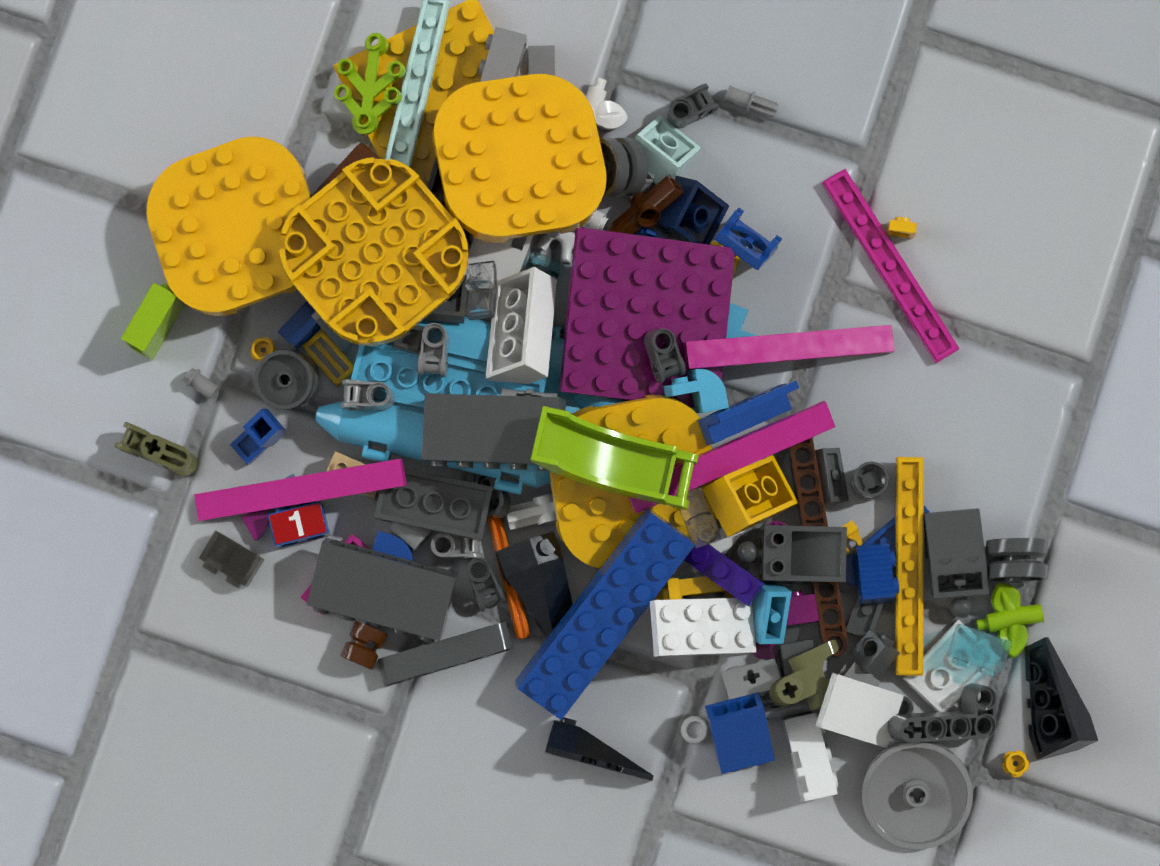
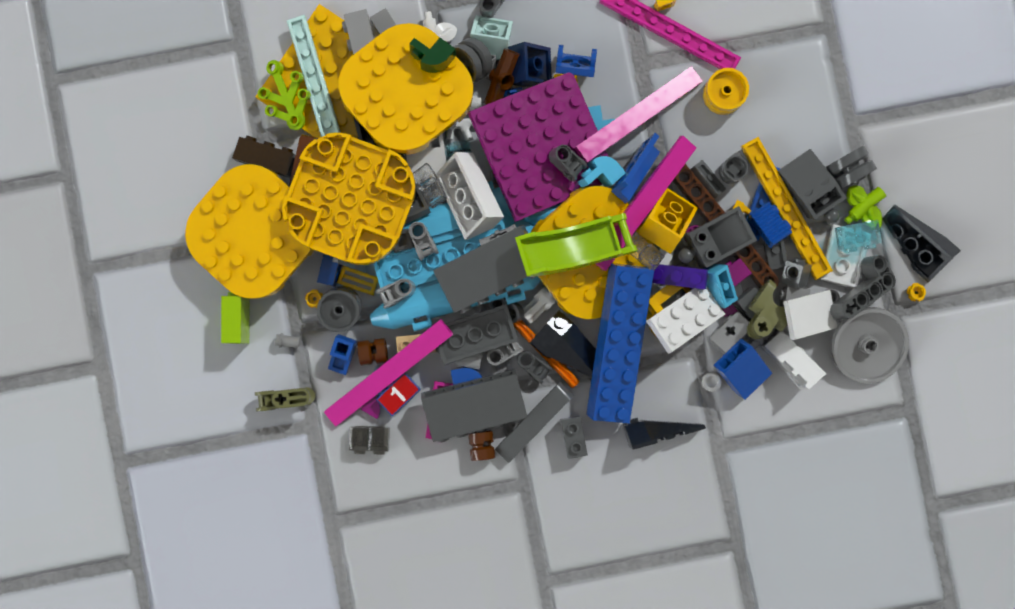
camera: 30 degrees left, 5 degrees up
(287, 452) = (366, 348): none -> reddish brown wheel
(303, 142) = (265, 155): none -> dark brown brick
(483, 699) = (574, 437): none -> dark grey brick
(570, 141) = (433, 59): none -> dark green brick
(900, 387) = (732, 82): none -> yellow wheel

